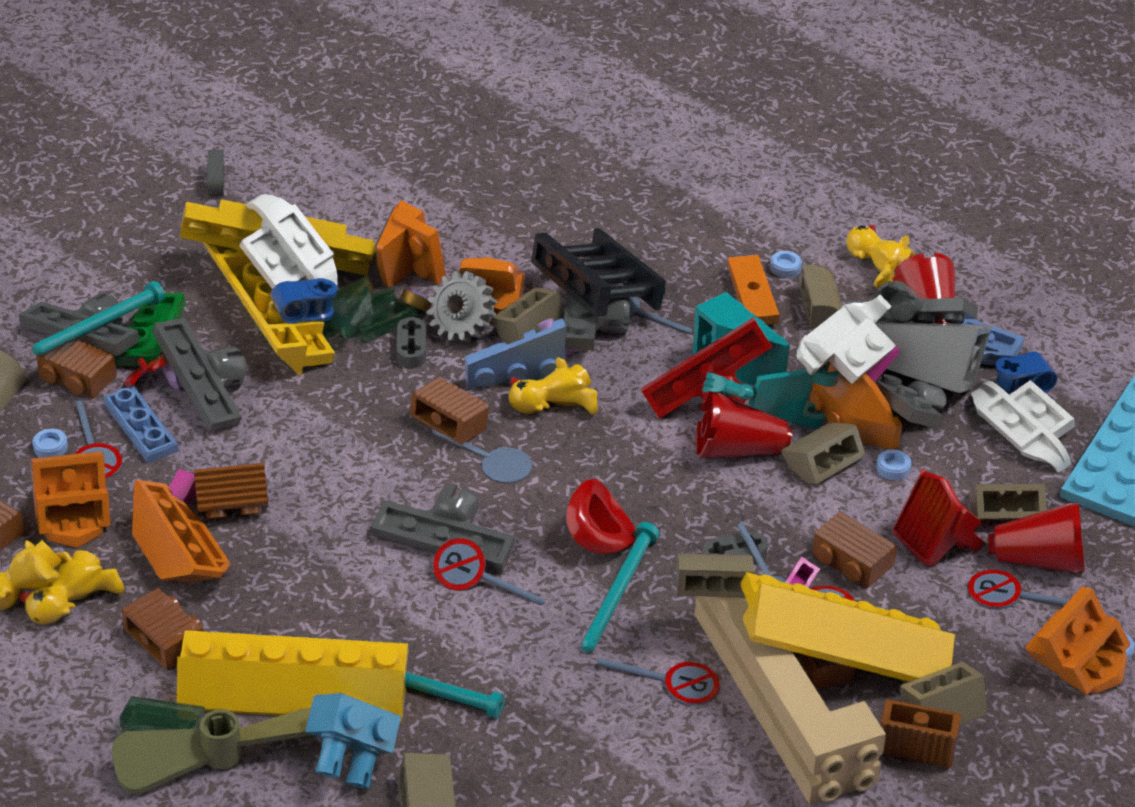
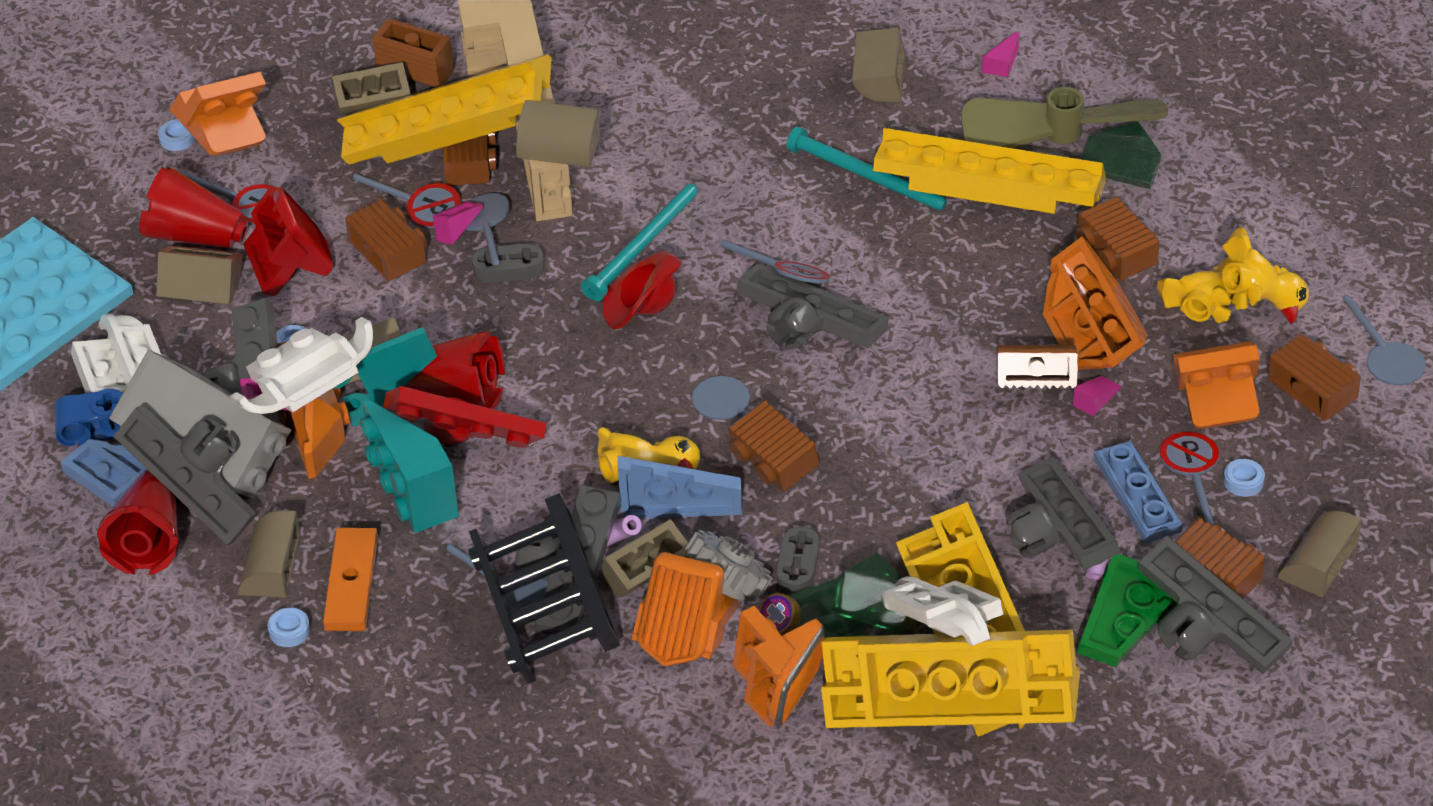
camera: 165 degrees left, 5 degrees up
(152, 293) = (1119, 629): teal bar -> none
(159, 362) = (1133, 545): red piece -> none
(304, 301) = (929, 557): blue piece -> none
(353, 725) = (940, 92): dark azure brick -> none
(685, 682) = (613, 150): piece -> none
(727, 387) = (451, 369): teal piece -> none
(885, 254) = (159, 600): yellow animal -> none

